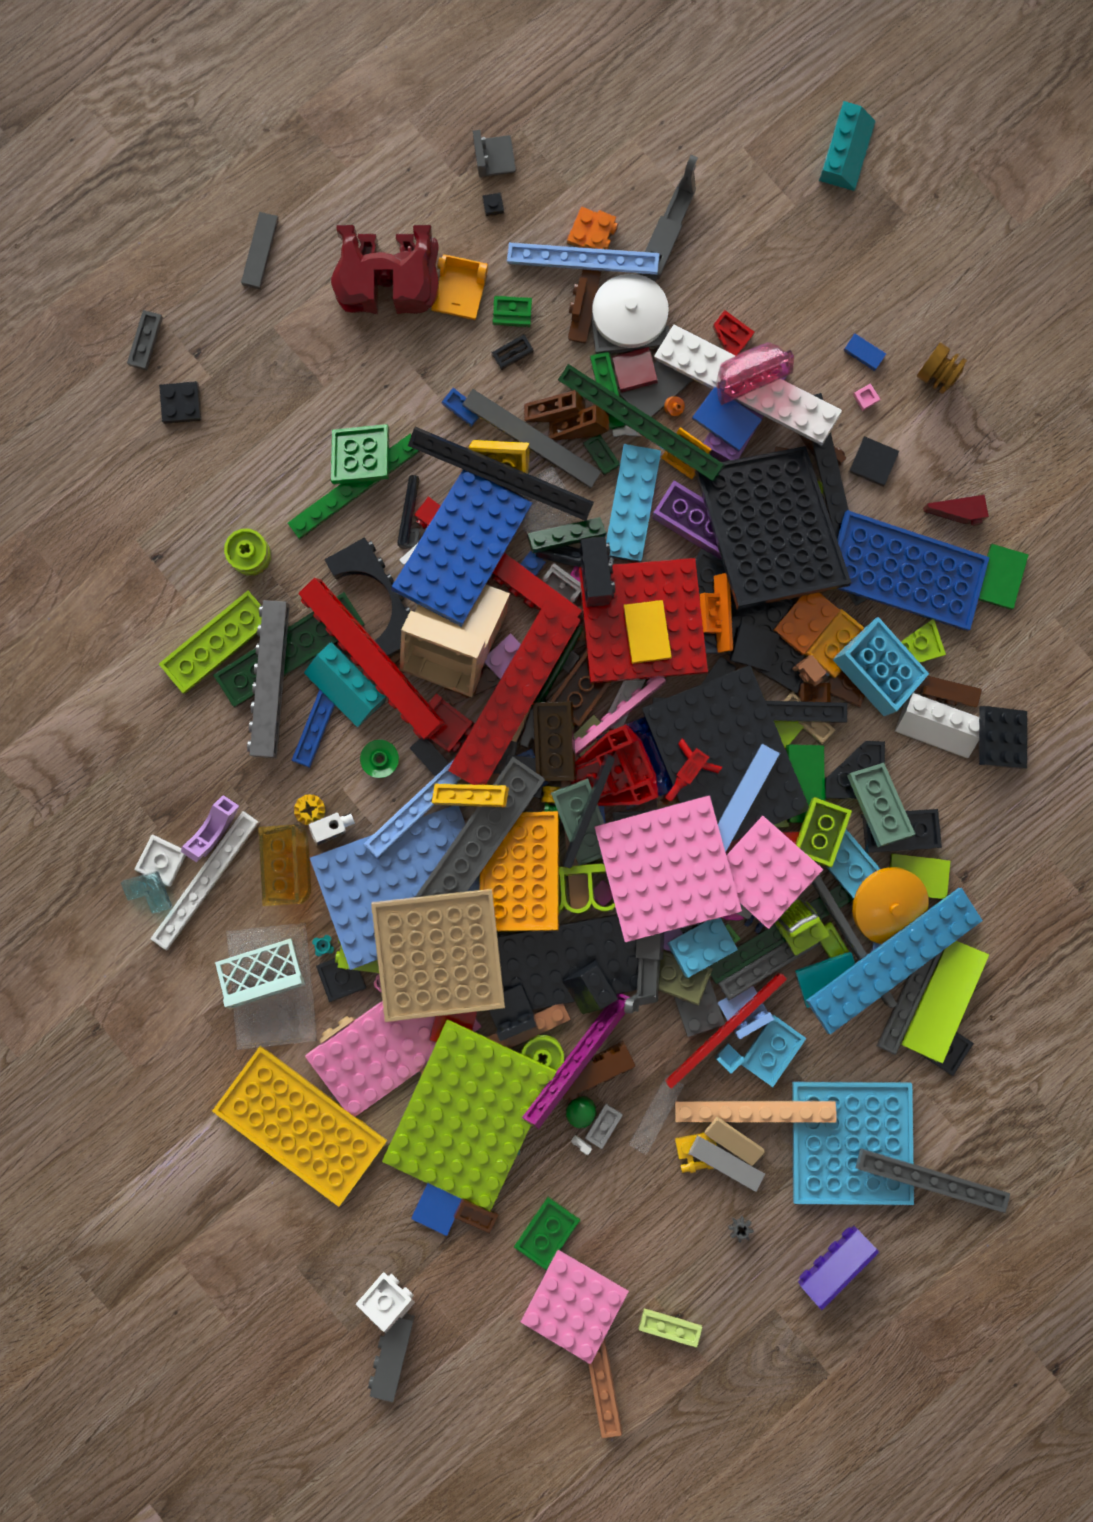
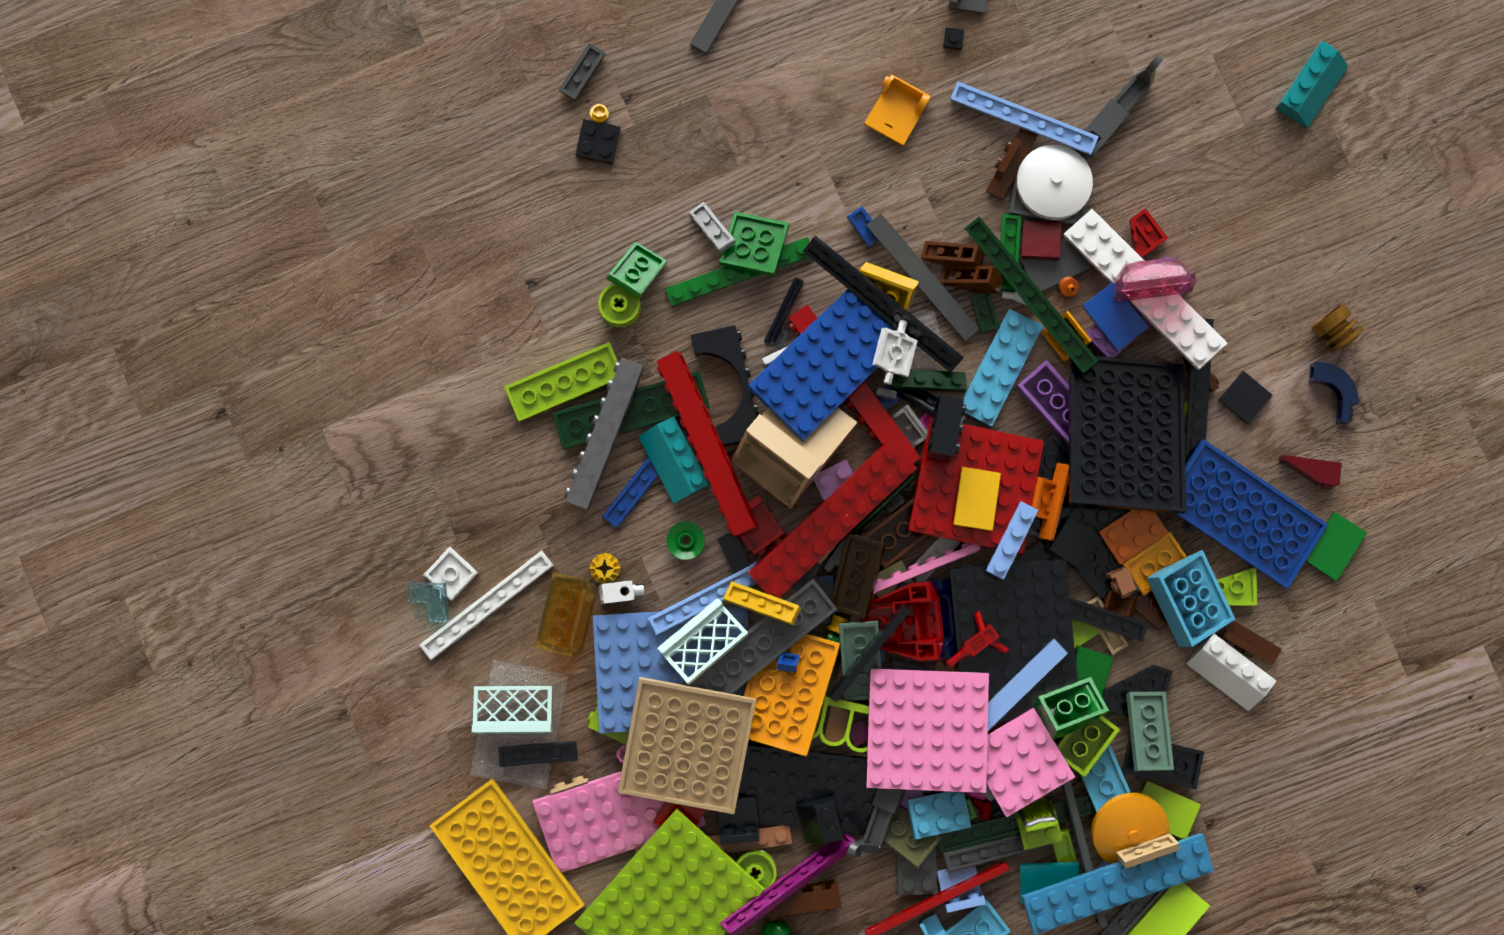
camera: 20 degrees right, 0 degrees up
(173, 375) = (599, 113): none -> yellow plate
(211, 830) = (507, 560): lavender arch -> none
(253, 513) = (636, 270): none -> tile
(297, 1008) = (538, 753): none -> black tile
(315, 451) = (712, 227): none -> light grey tile
(317, 942) = (579, 706): teal plate -> none
(339, 981) = (588, 740): black tile -> none
(409, 271) = (855, 81): dark red animal -> none
(409, 845) = (690, 632): none -> light aqua fence
(512, 311) = (940, 148): green plate -> none
(513, 844) = (788, 662): none -> blue plate
(517, 357) = (931, 194): black tile -> none
(526, 515) = (895, 352): none -> white plate
(530, 559) = (886, 394): none -> dark grey tile
(592, 229) = (1041, 92): orange plate -> none
(693, 661) = (1011, 540): none -> light blue plate
(744, 927) = (984, 808): none -> red tile
(798, 804) = (1070, 707): none -> green slope
(864, 352) = (1268, 288): blue tile -> none
(866, 397) = (1256, 333): bright pink plate -> none
(914, 920) = (1148, 851): none -> tan plate
(959, 420) = (1340, 384): none -> dark blue arch
(1002, 737) = (1287, 702): black plate -> none

